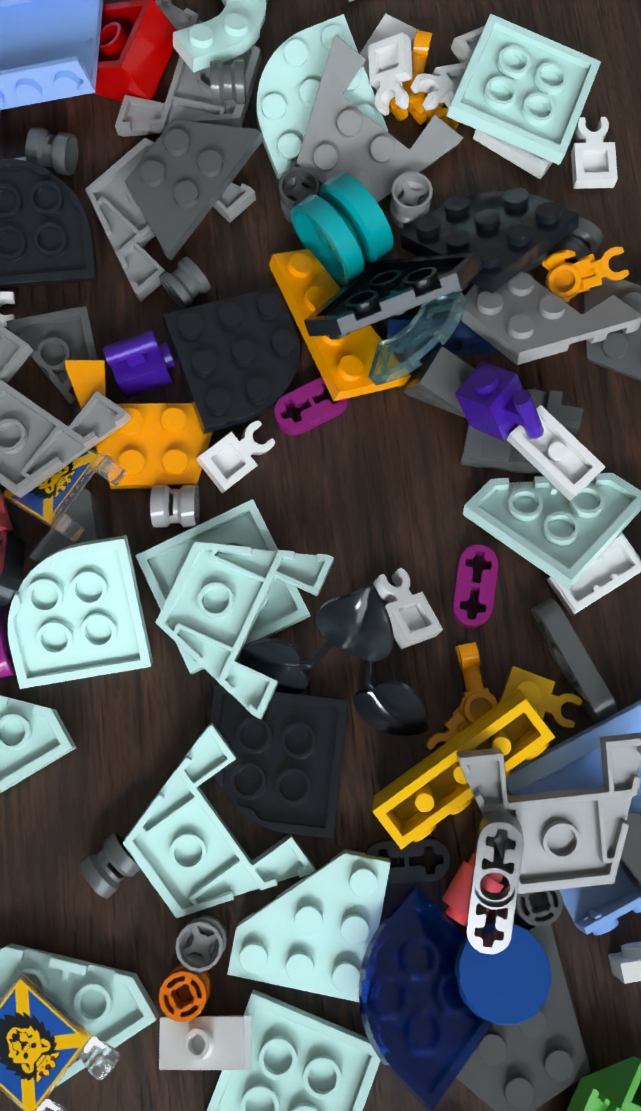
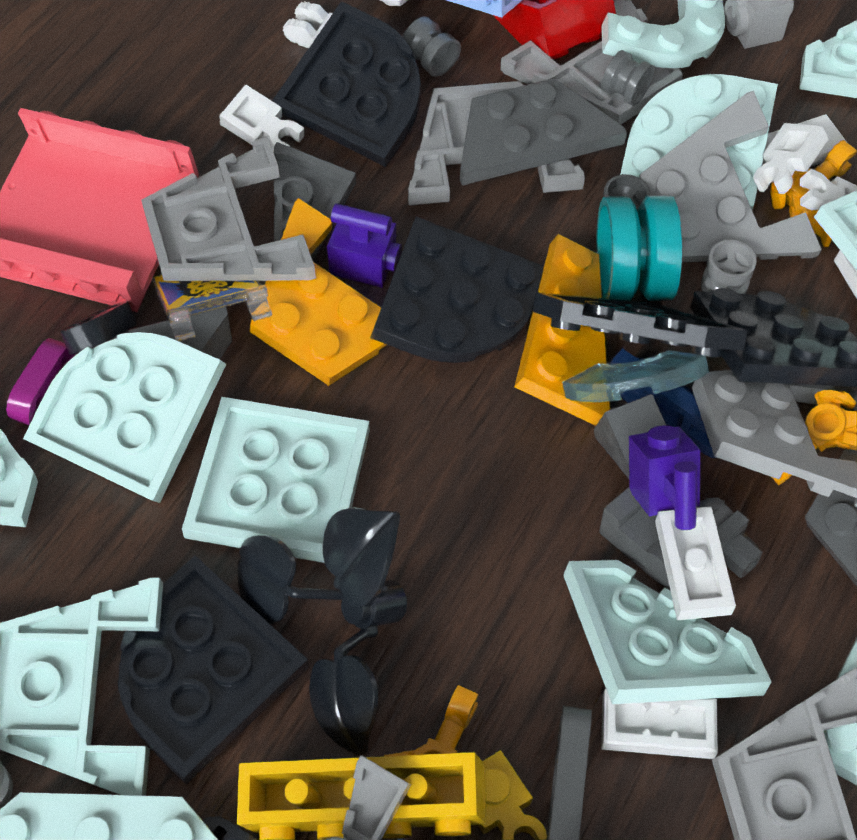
camera: 30 degrees right, 20 degrees down
(175, 505) = (293, 381): light grey wheel -> none
(185, 283) = (460, 210): dark grey wheel -> none
(218, 605) = (256, 483): light aqua wing -> none
(231, 459) = (378, 378): white plate -> none
(314, 415) = (492, 385): magenta beam -> none
(409, 614) = (430, 626): white plate -> none
(485, 586) = (530, 658): magenta beam -> none

